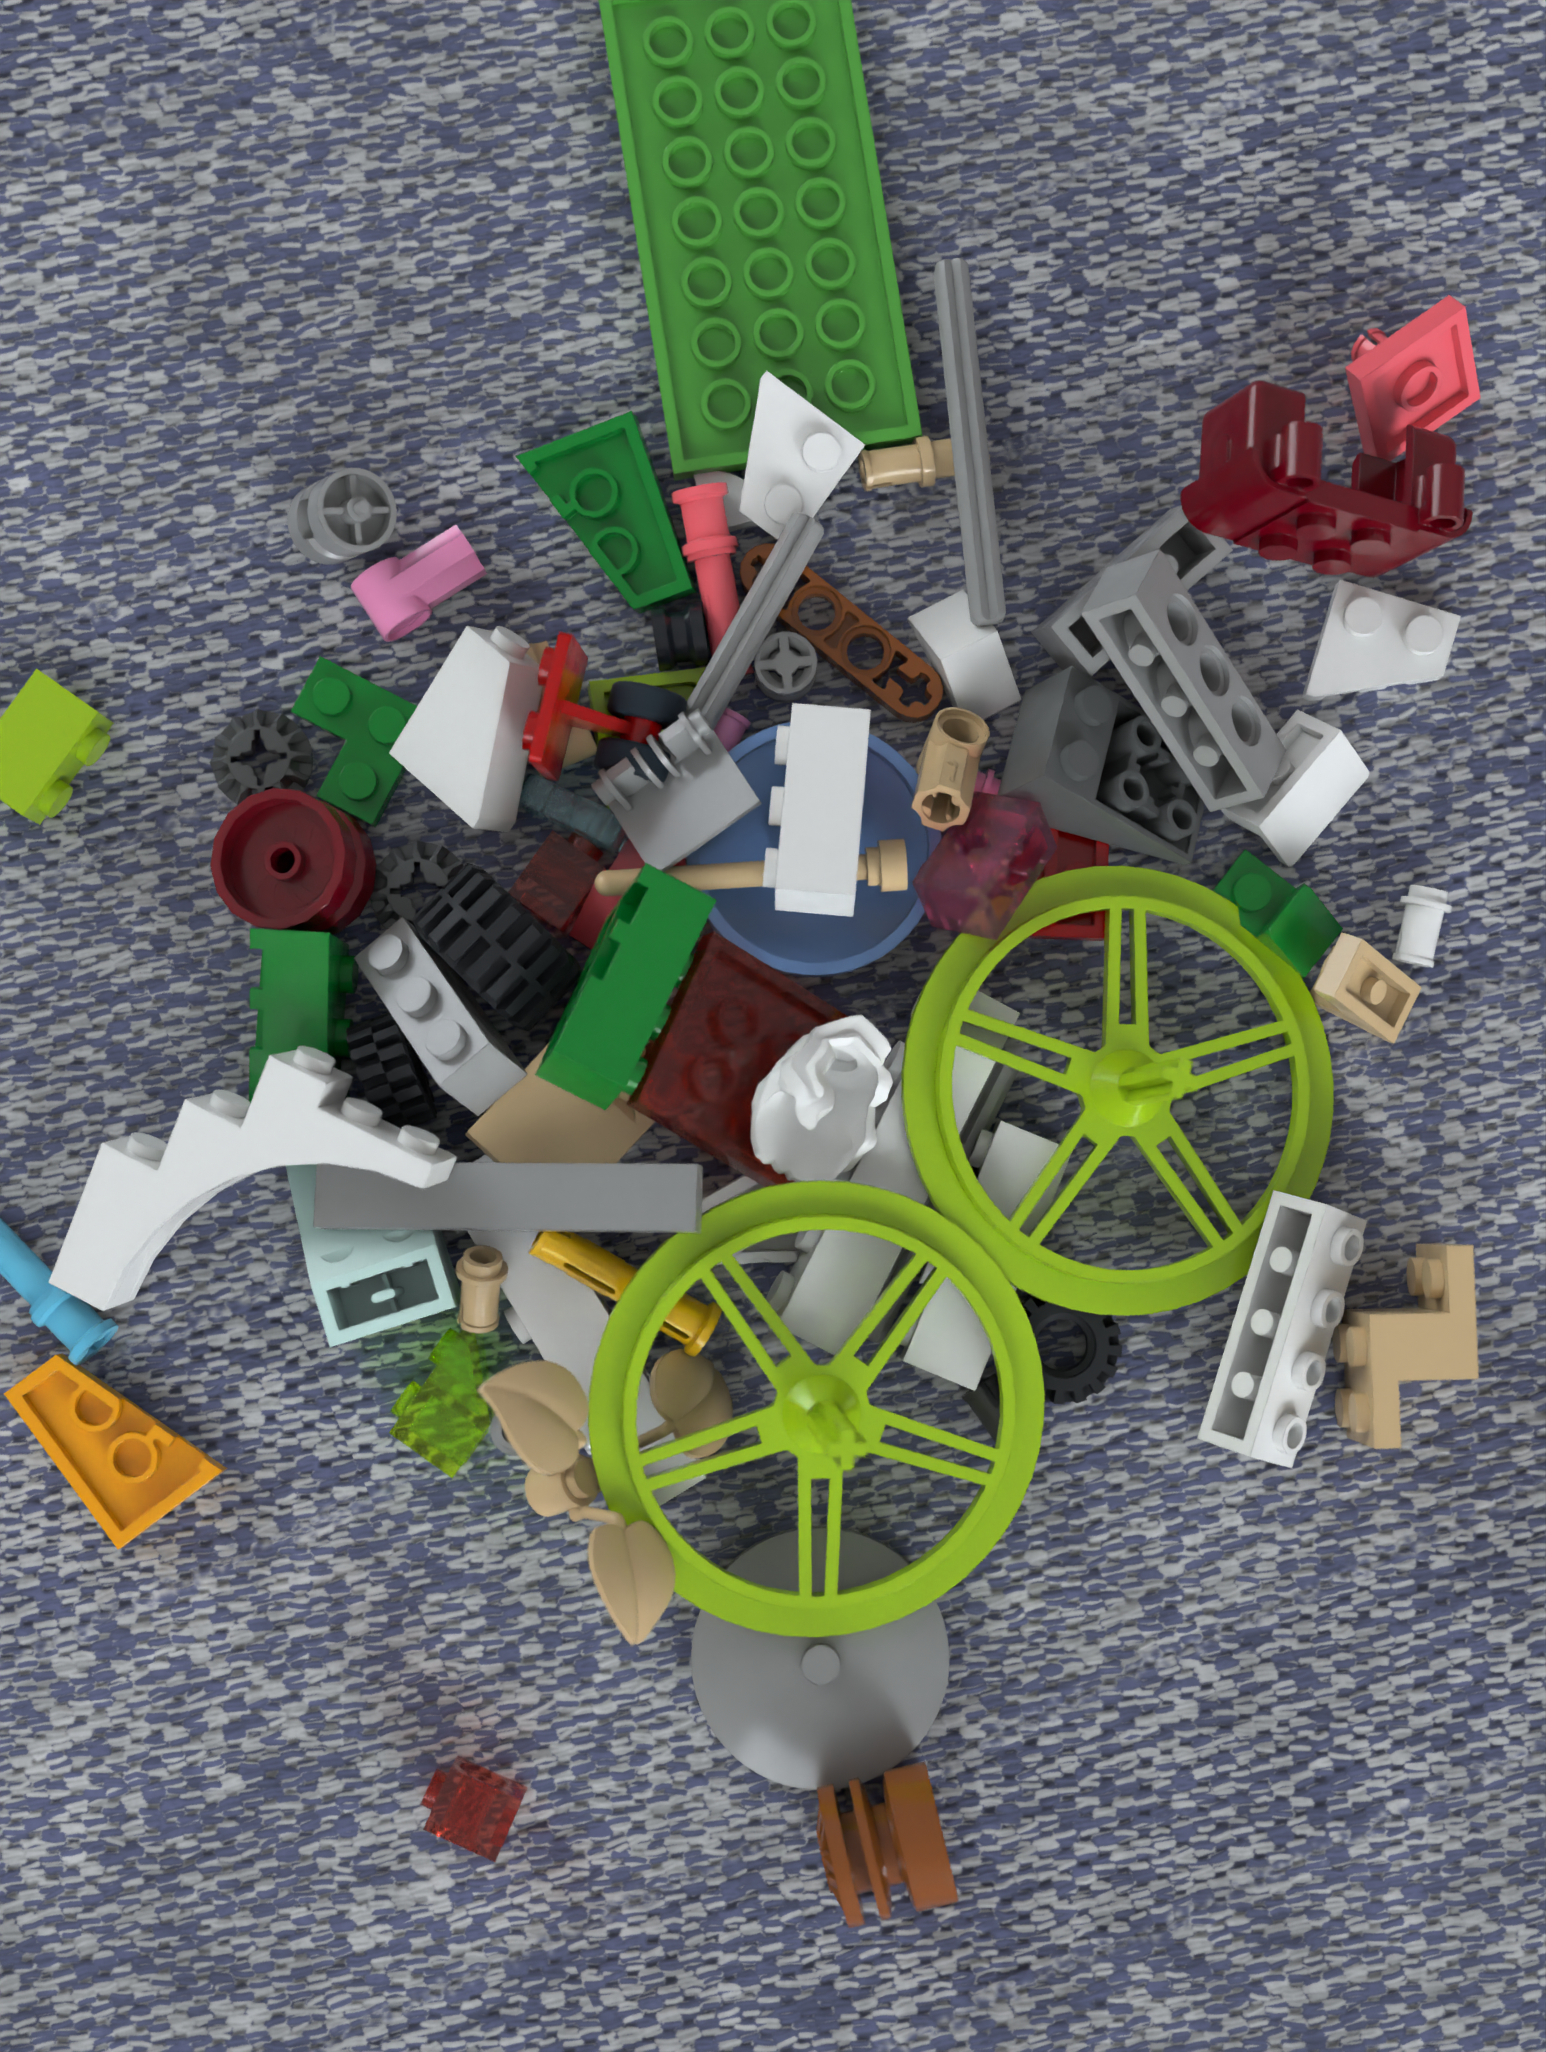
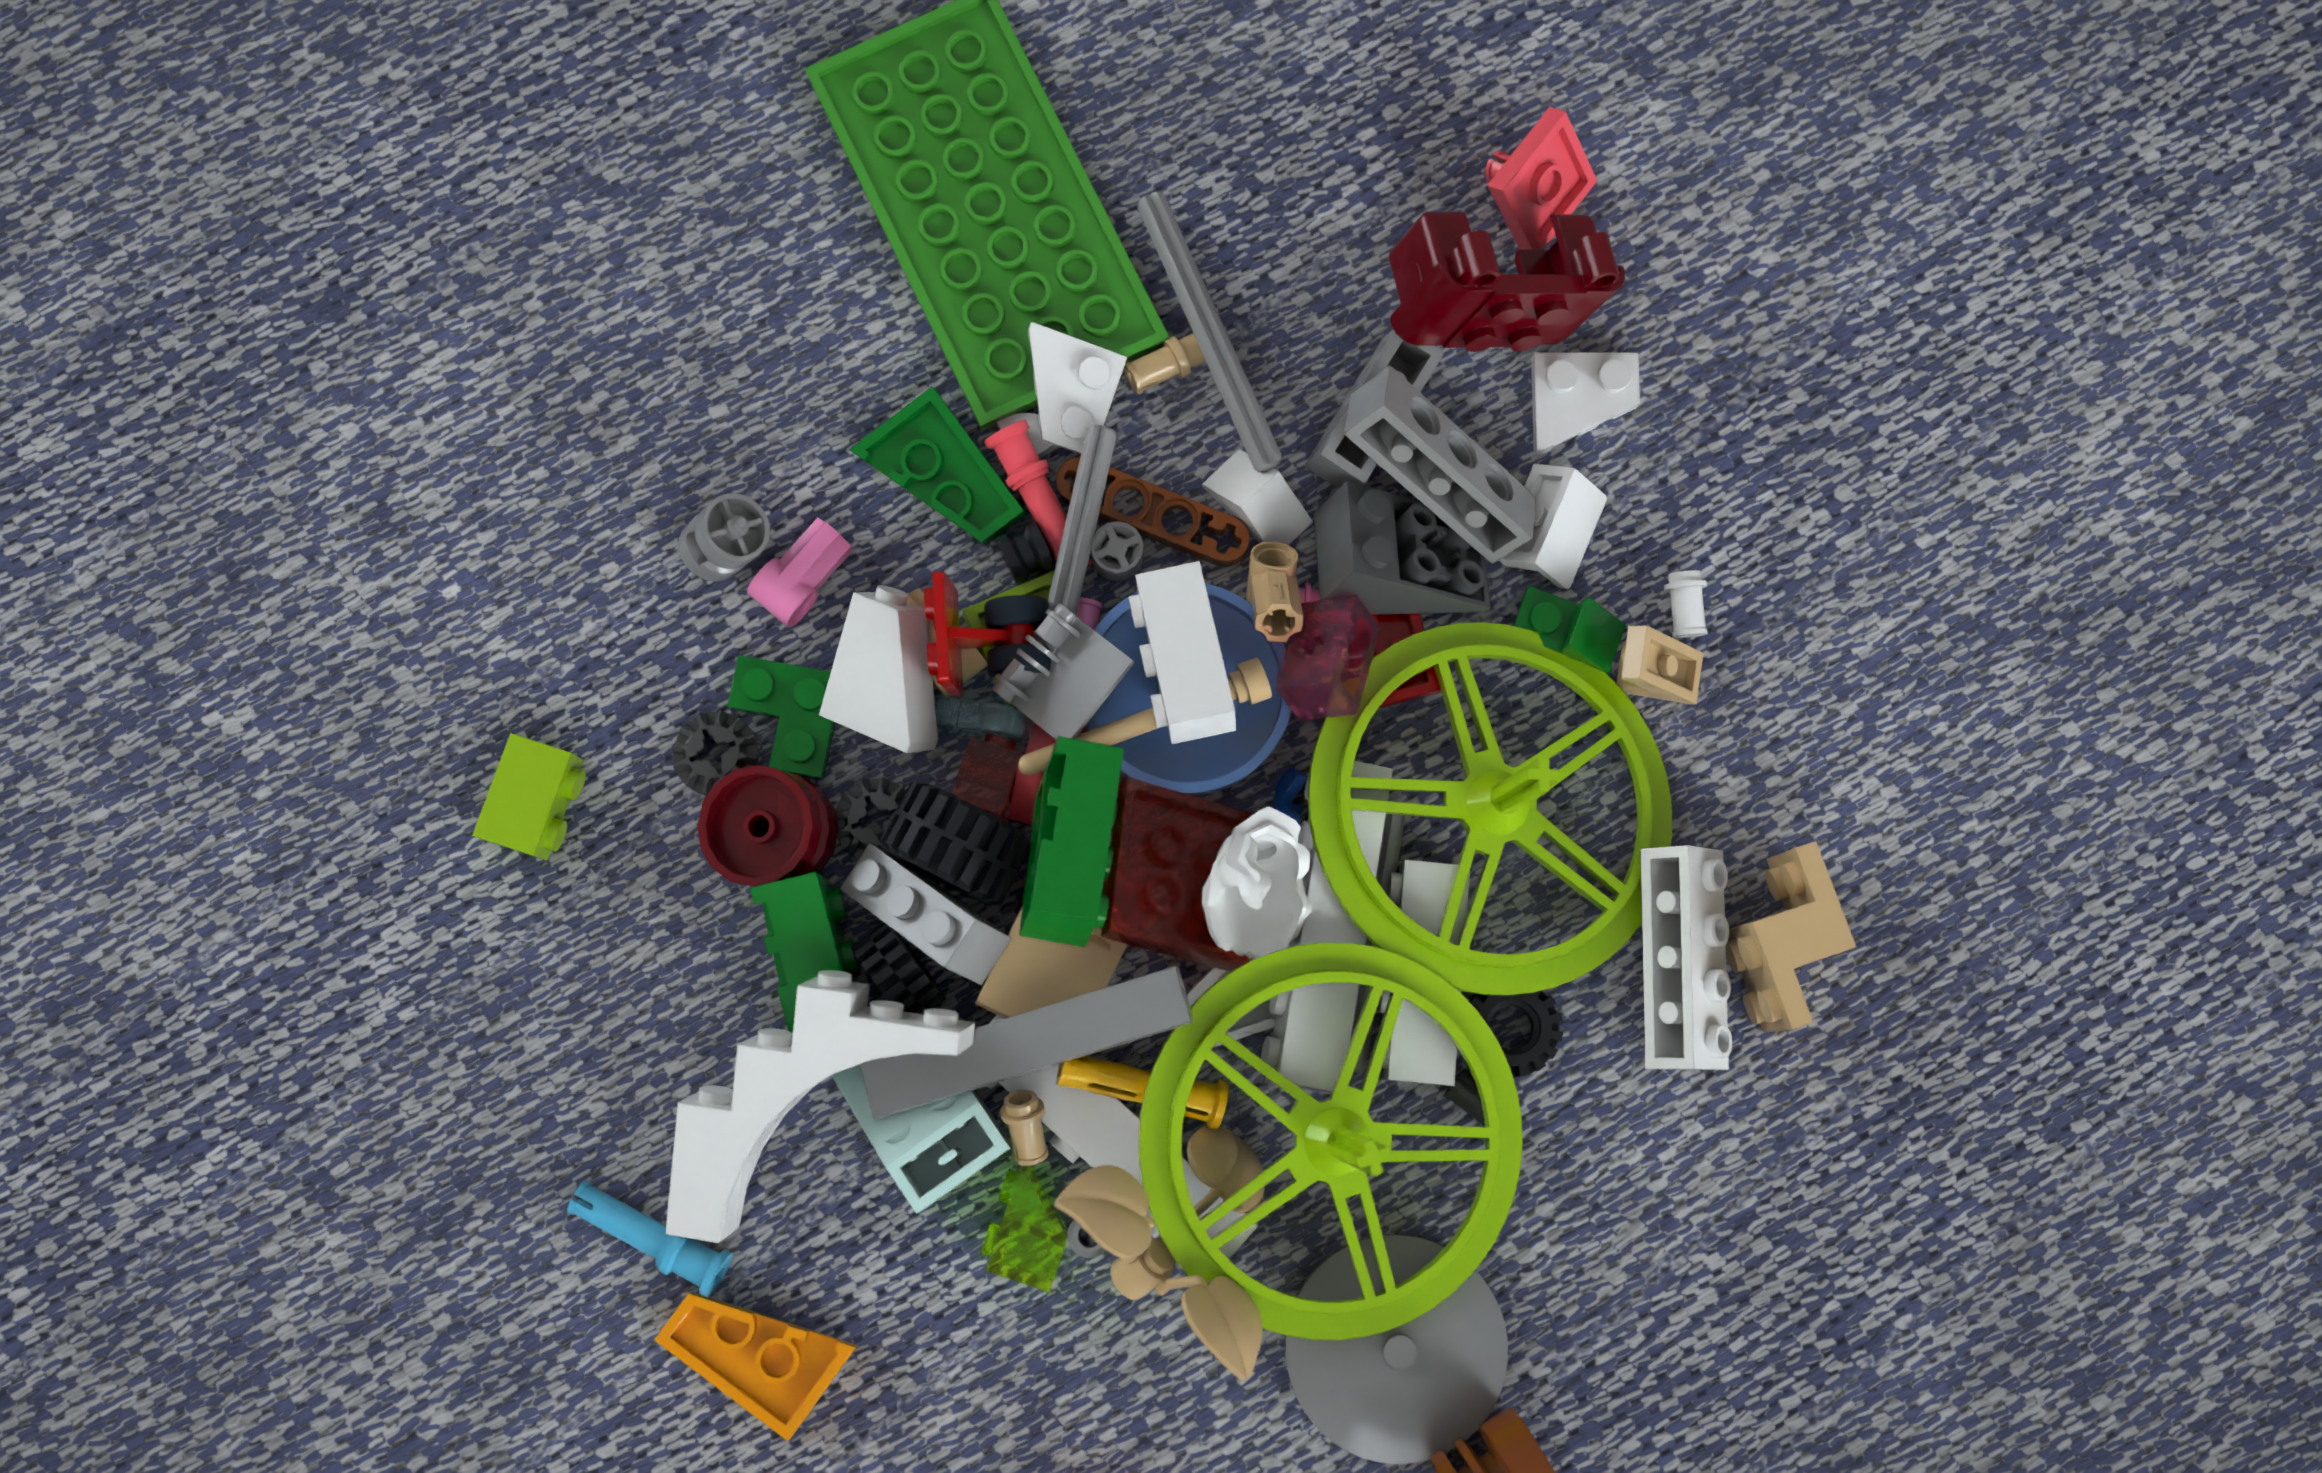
camera: 20 degrees left, 5 degrees down
(893, 999) = (1286, 790): none -> blue piece

